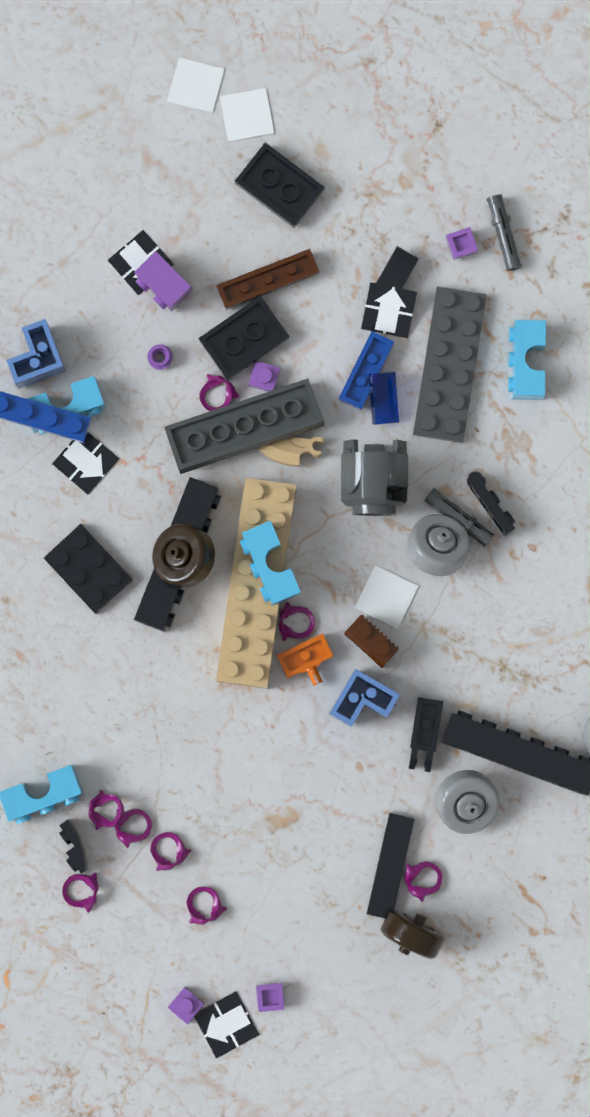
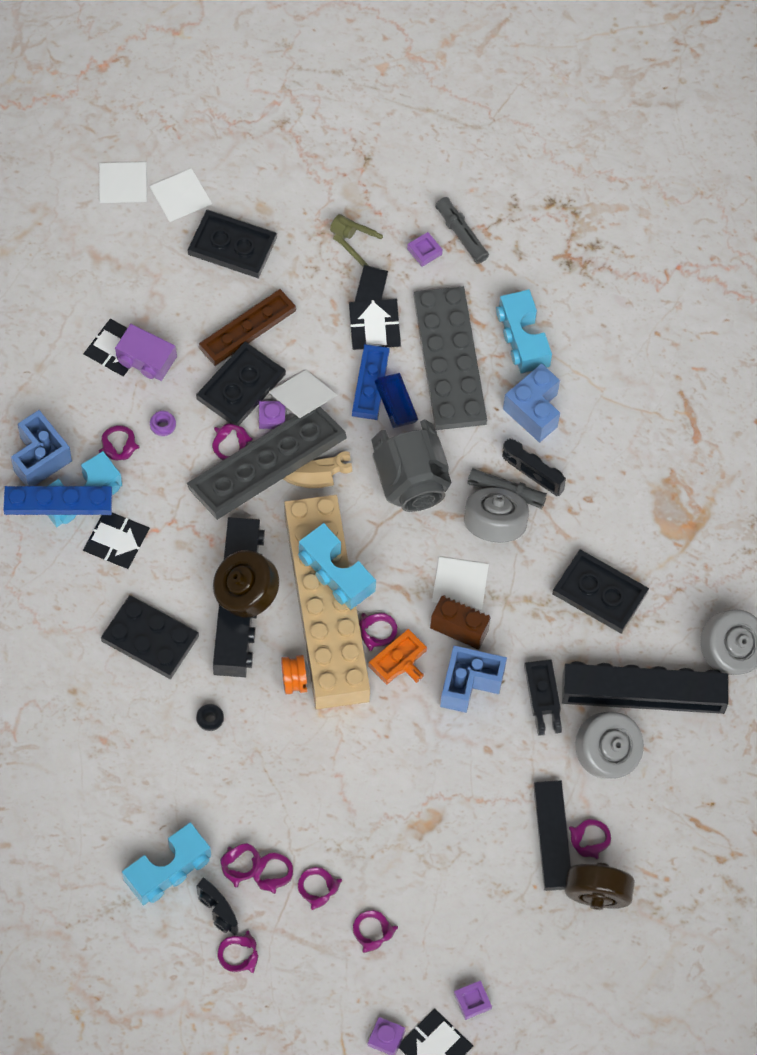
camera: 20 degrees left, 20 degrees down
(111, 664) = (206, 710): none -> black plate
(120, 375) = (128, 449): none -> magenta piece
(205, 648) = (294, 674): none -> orange wheel
(298, 364) = (303, 393): none -> white sticker
(394, 198) = (346, 228): none -> olive plant
(507, 436) = (530, 403): none -> medium blue brick
(511, 646) = (600, 591): none -> black plate

